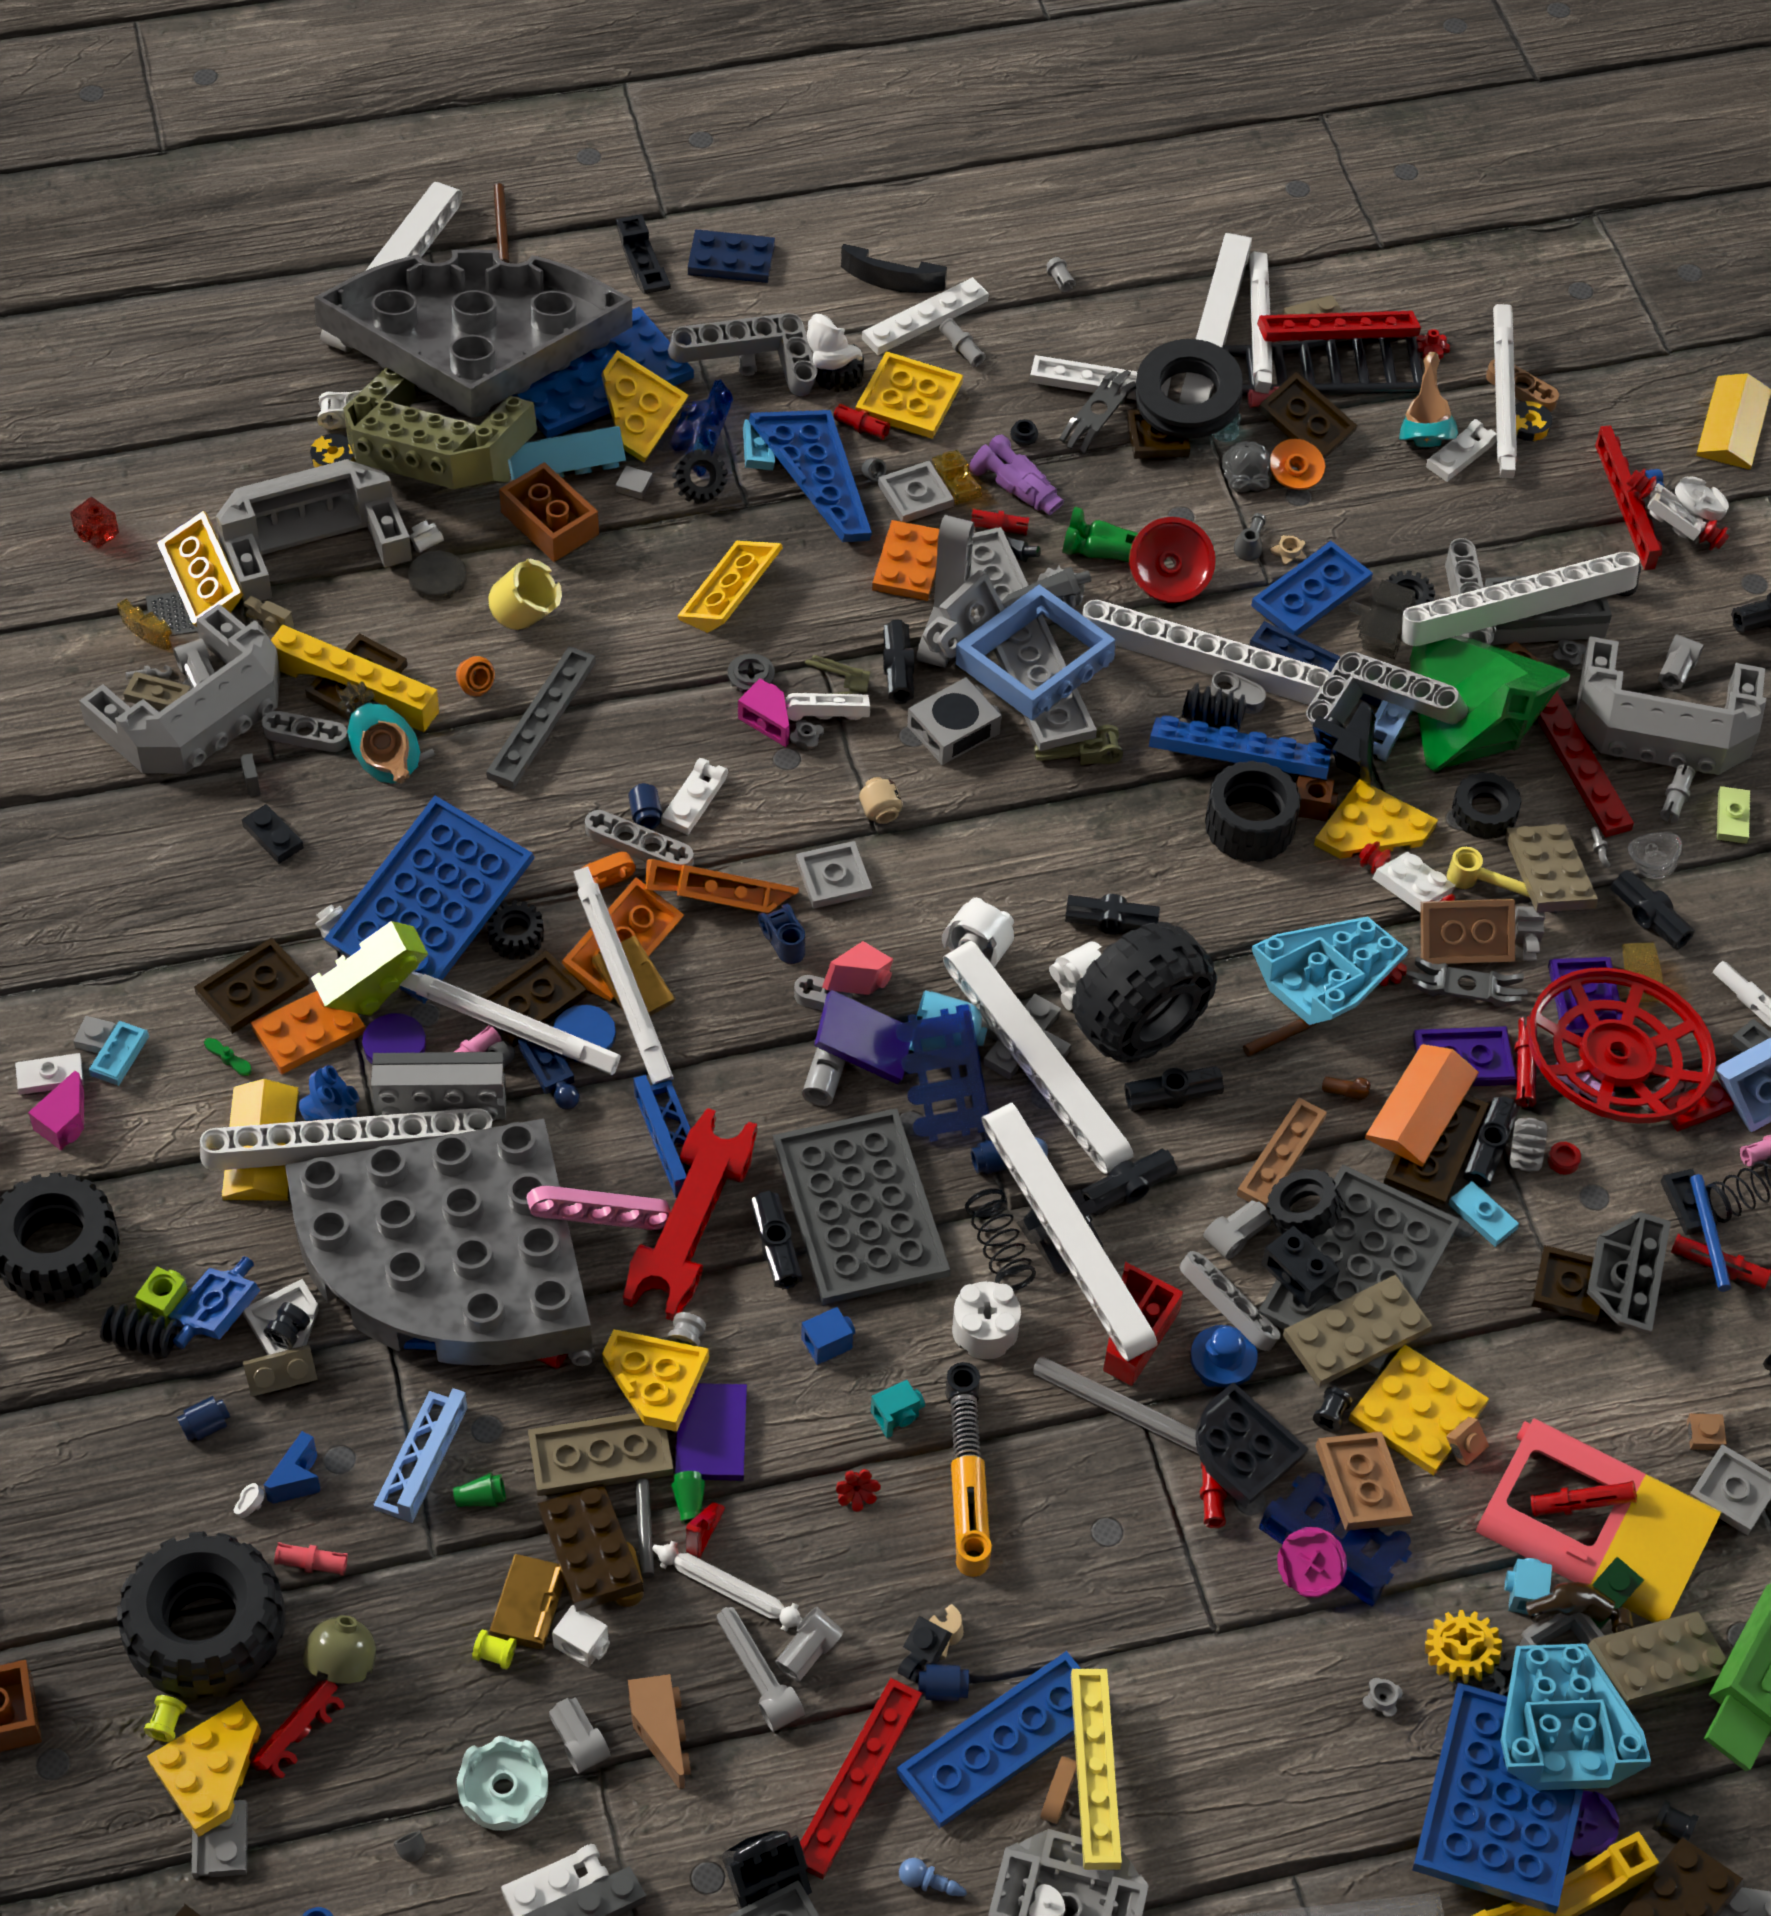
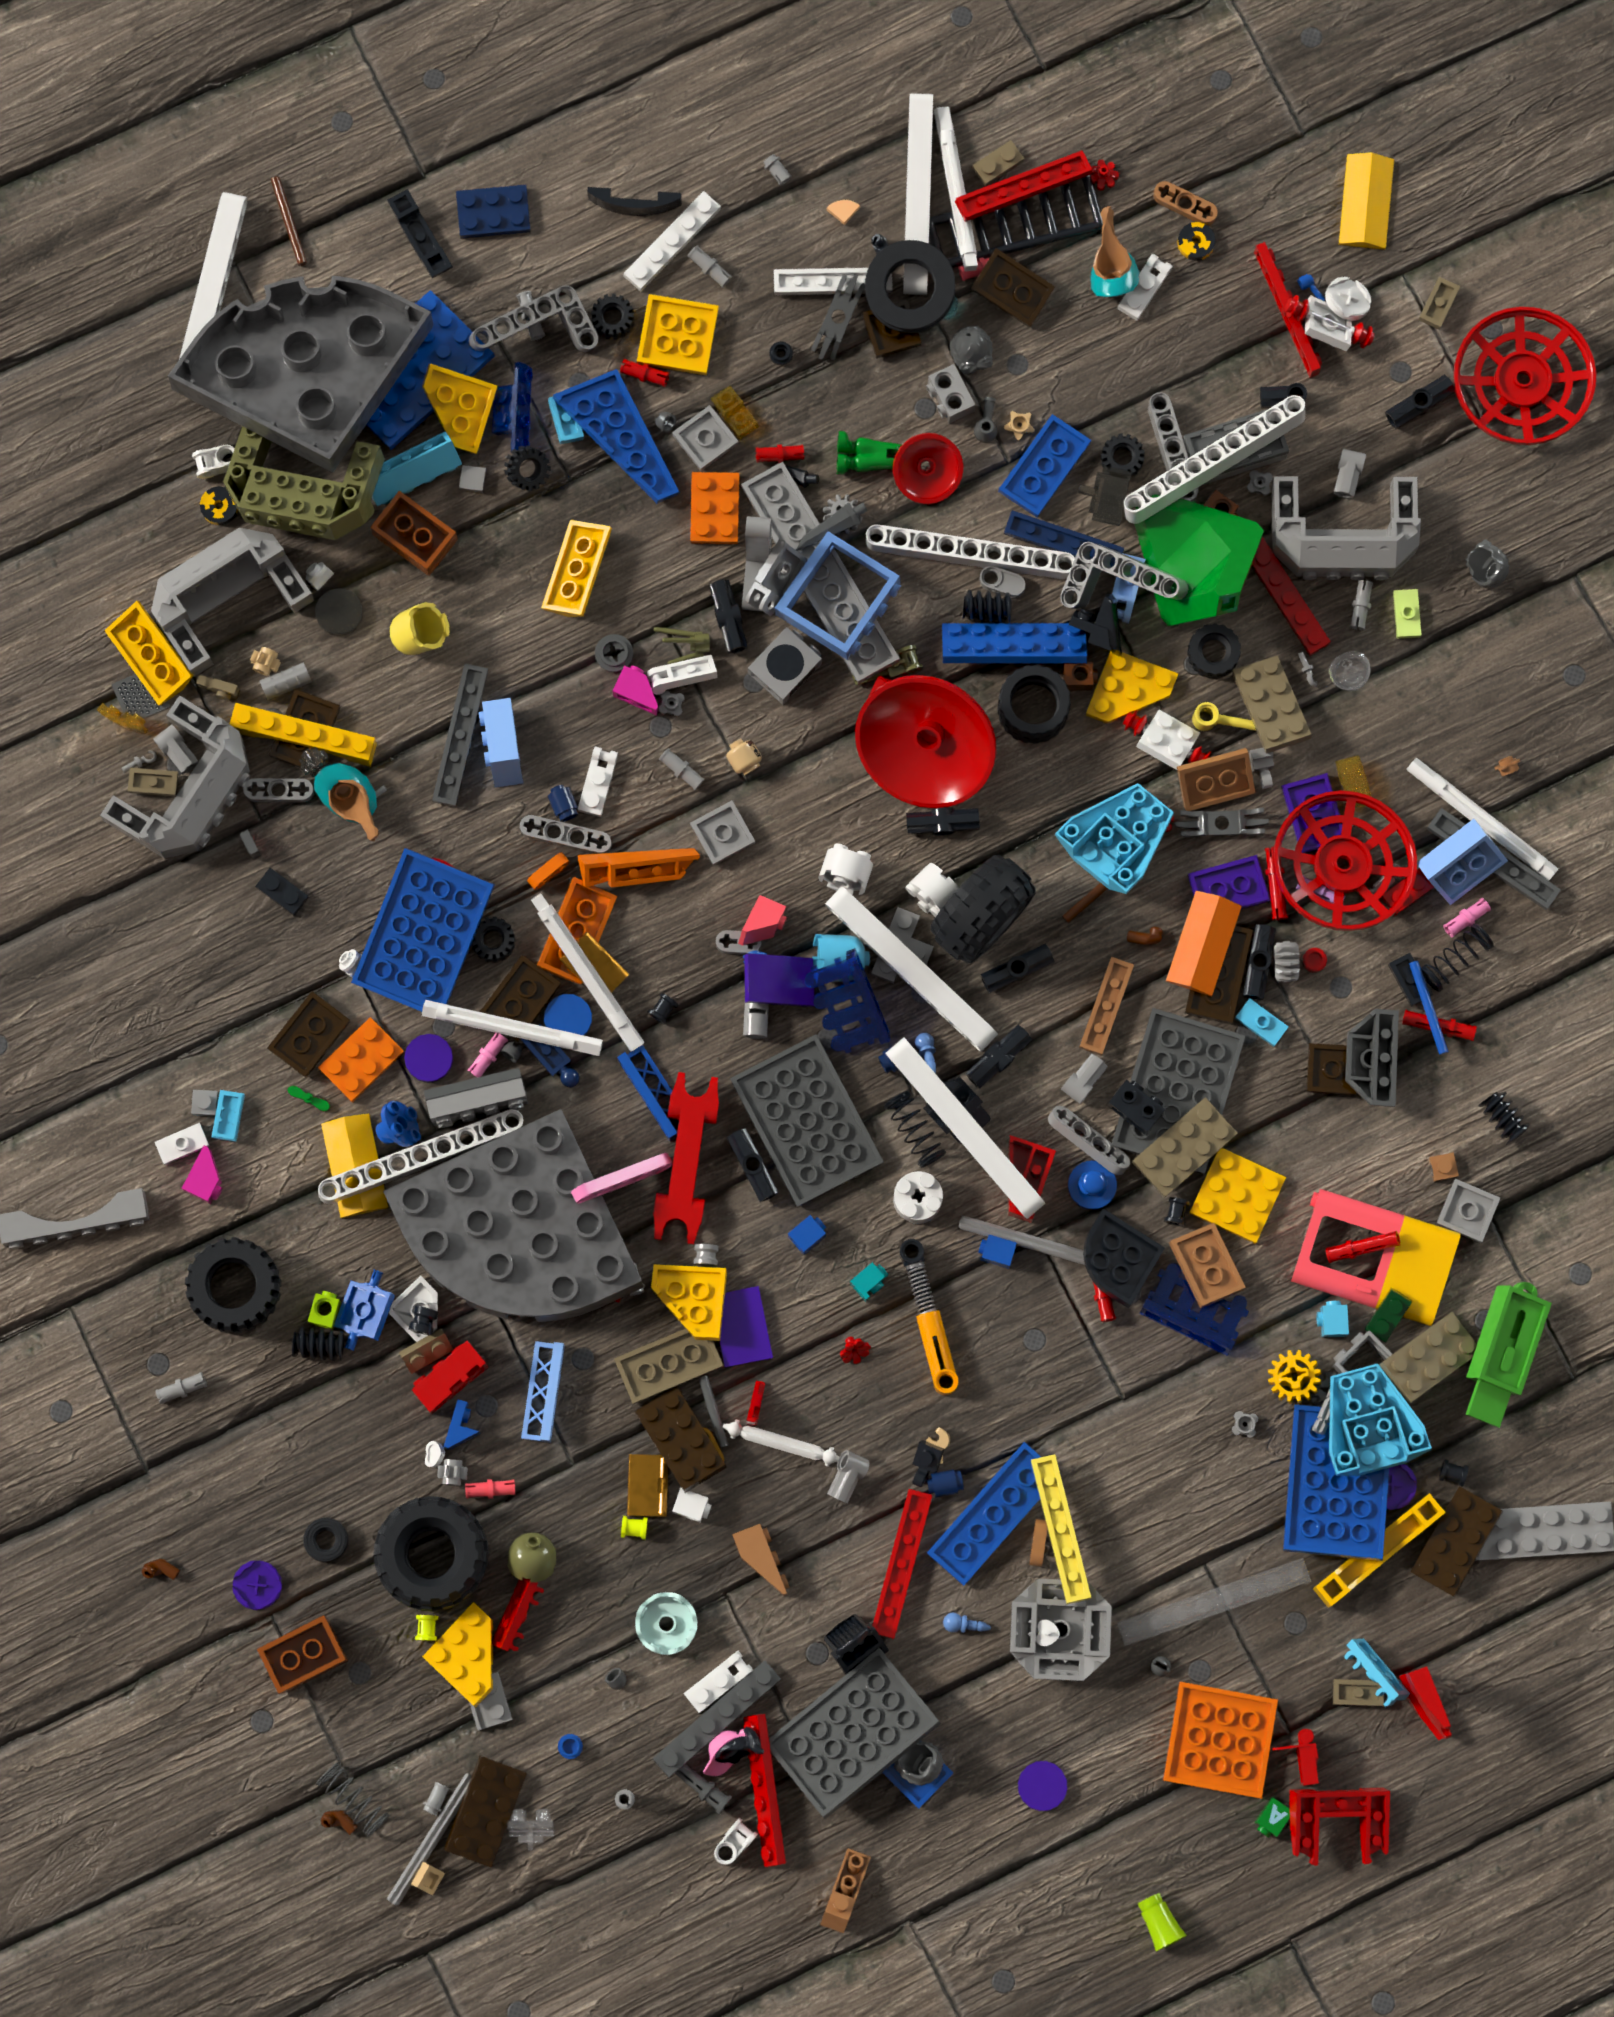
camera: 10 degrees left, 25 degrees up
(72, 1596) = (314, 1529): none -> black tyre
(94, 522) = (49, 626): clear red brick -> none
(203, 1418) = (383, 1400): dark blue brick -> none
(265, 1524) = (452, 1472): none -> light grey gear
(303, 1402) = (449, 1377): none -> red wedge
(333, 600) = (265, 661): none -> tan gear
(349, 625) = (285, 681): none -> light grey axle
(374, 971) = (400, 1014): lime wedge -> none
(475, 675) = (398, 709): orange cone -> none
(481, 1492) = (595, 1411): green cone -> none
(581, 1742) = (711, 1581): light grey piece -> none
(587, 731) = (501, 742): none -> light blue wedge
(688, 1493) = (738, 1381): green cone -> none
(707, 1043) = (662, 1008): none -> black bush
(777, 1702) = (836, 1523): light grey axle -> none
(784, 934) = (693, 892): dark blue piece -> none
(800, 800) = (681, 769): none -> light grey pin
(829, 344) = (602, 313): white hair -> none
(1017, 477) = (787, 406): medium lavender piece -> none
(1080, 1407) = (997, 1251): none -> blue brick
(1110, 806) = (925, 741): none -> red dish
(1127, 323) = (843, 210): none -> light nougat tile
(1214, 502) = (956, 392): none -> light grey brick
(1300, 1185) = (1115, 1042): black tyre -> none
(1301, 455) = (1023, 338): orange dish -> none
(1312, 1562) = (1181, 1338): dark pink tile -> none
(1467, 1441) = (1275, 1216): medium nougat plate -> none
(1496, 1706) = (1320, 1425): none -> light grey axle
(1505, 390) = (1171, 218): white piece -> none
(1577, 1598) = (1367, 1331): dark brown arm -> none
(1652, 909) = (1354, 722): black piece -> none

